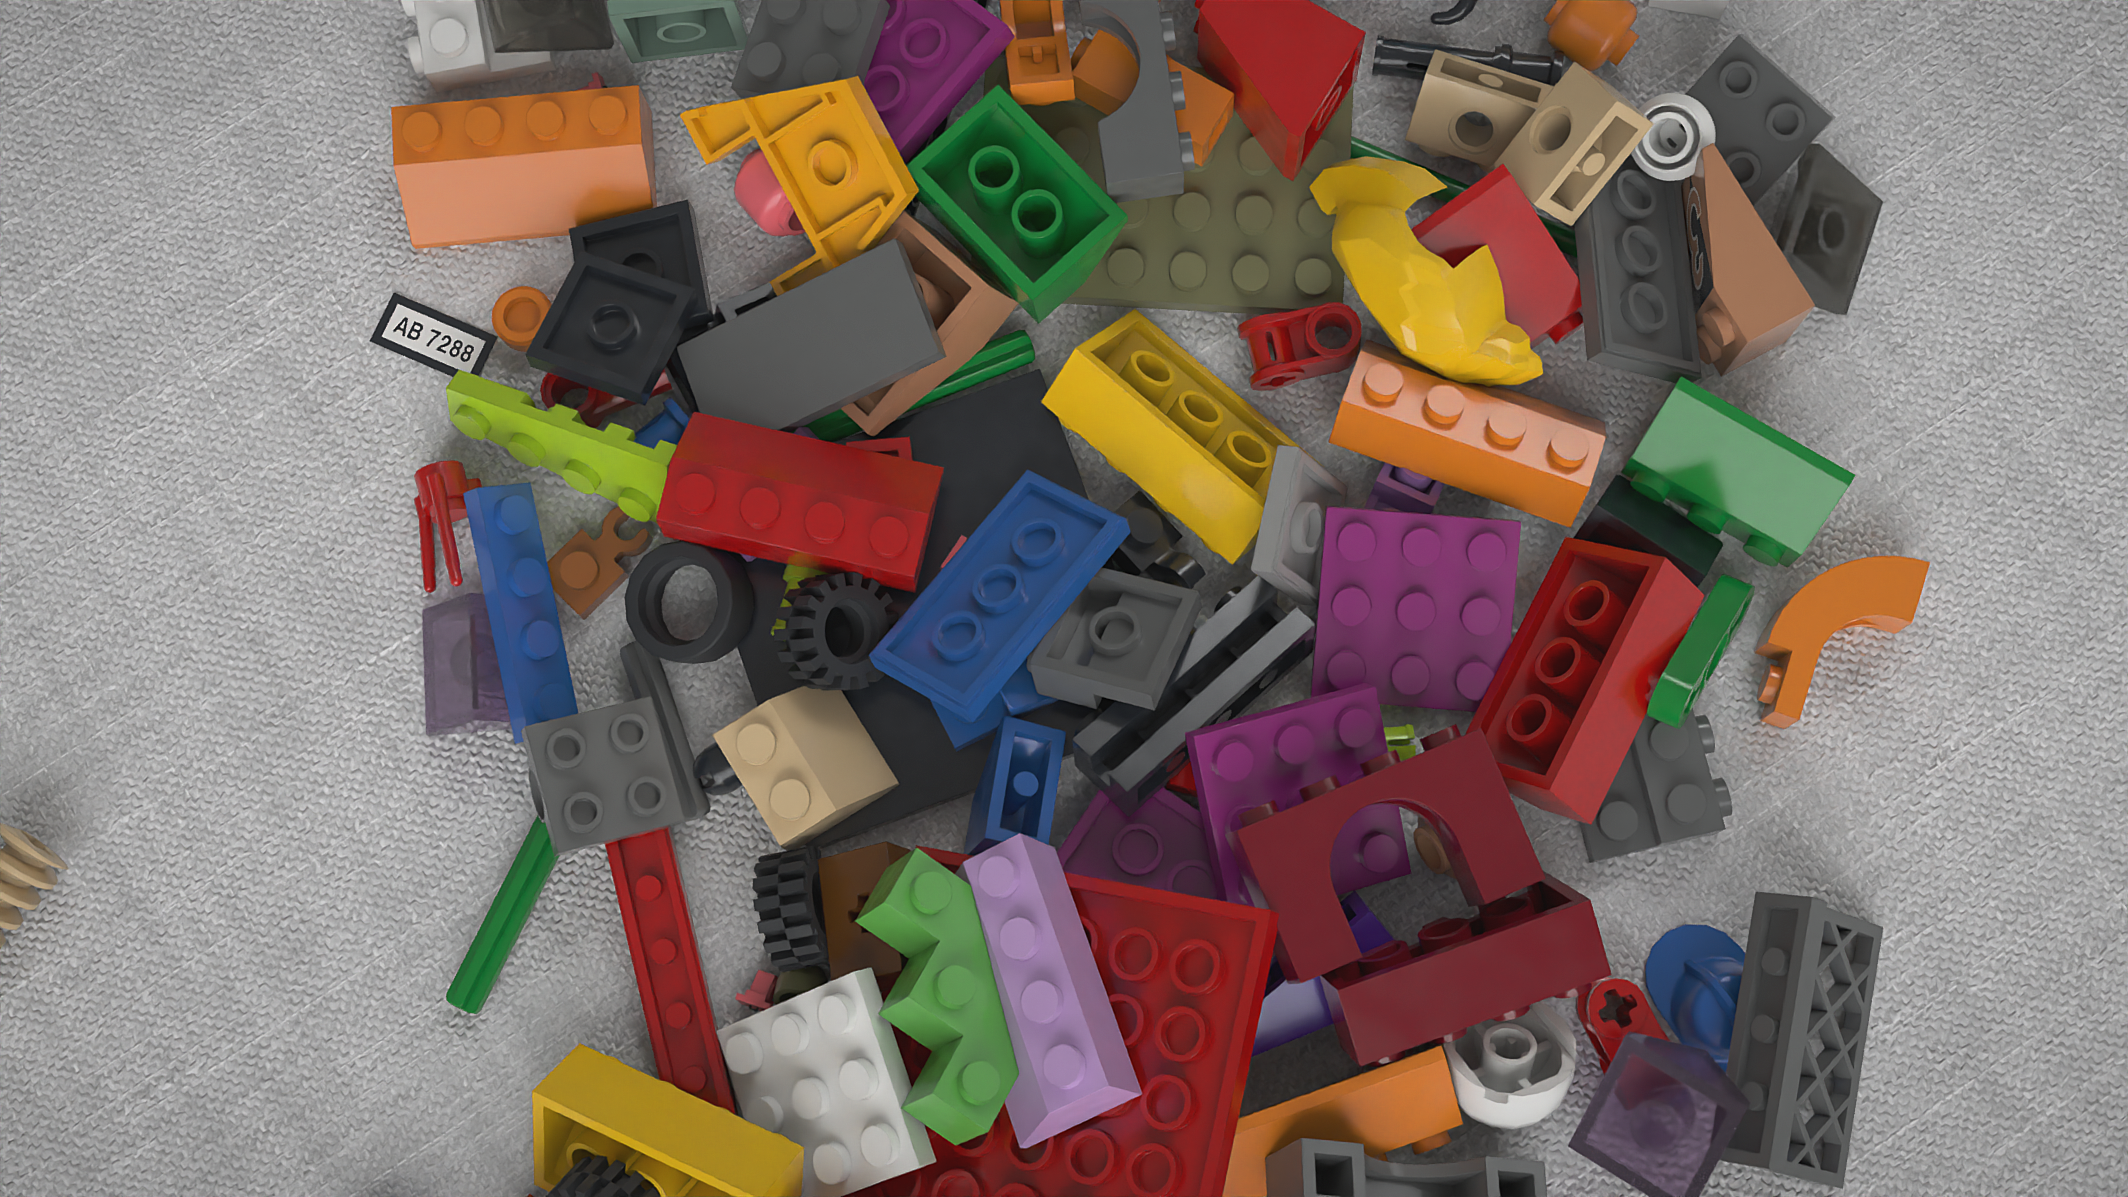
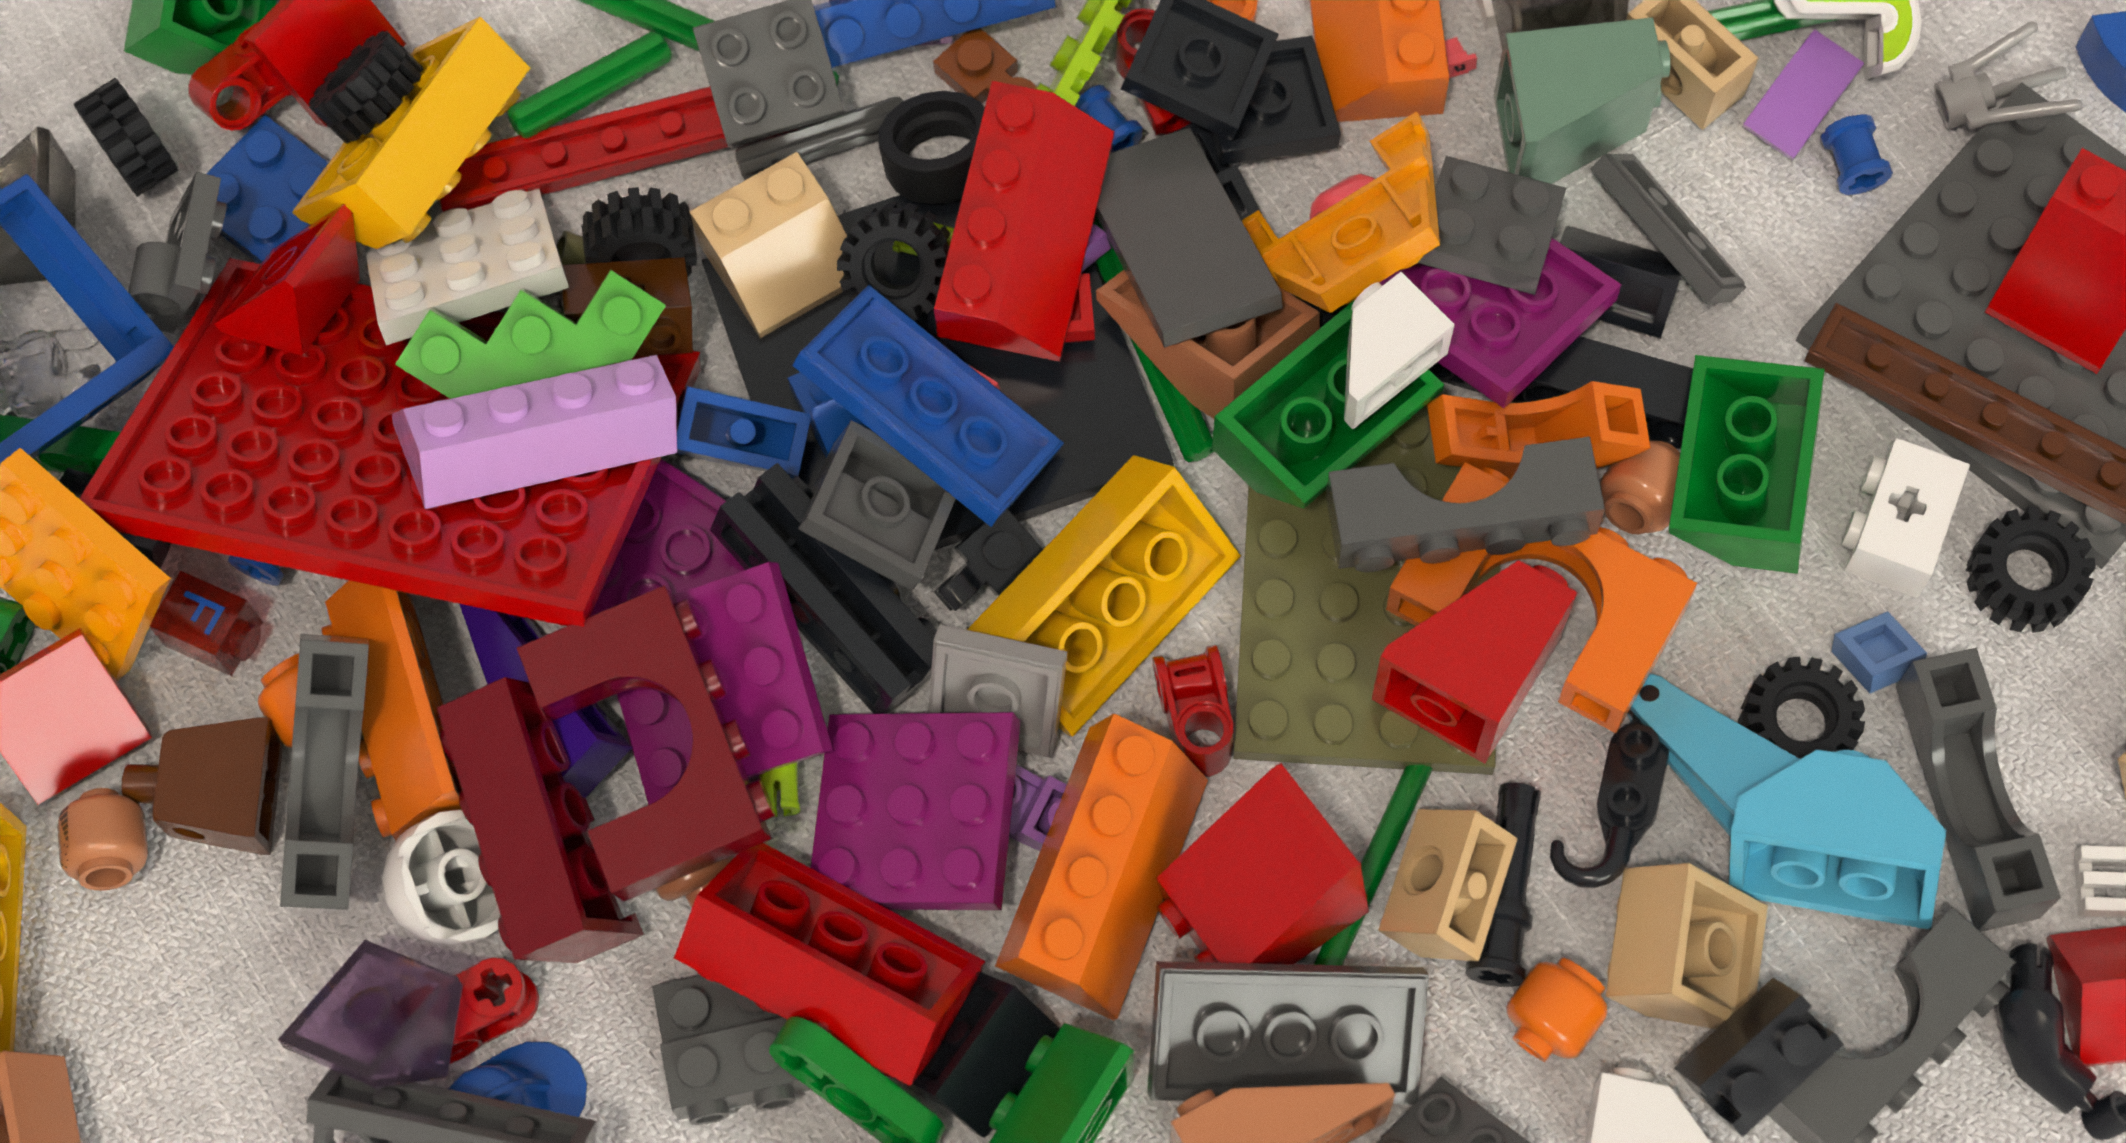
camera: 85 degrees right, 10 degrees down
(595, 981) = (589, 84): none -> green axle
(761, 992) = (567, 222): coral piece -> none
(968, 128) = (1390, 344): none -> white slope
(1426, 307) = (1198, 821): yellow animal -> none
(1573, 144) = (1393, 950): tan brick -> none
(1657, 152) = (1421, 1071): white cone -> none

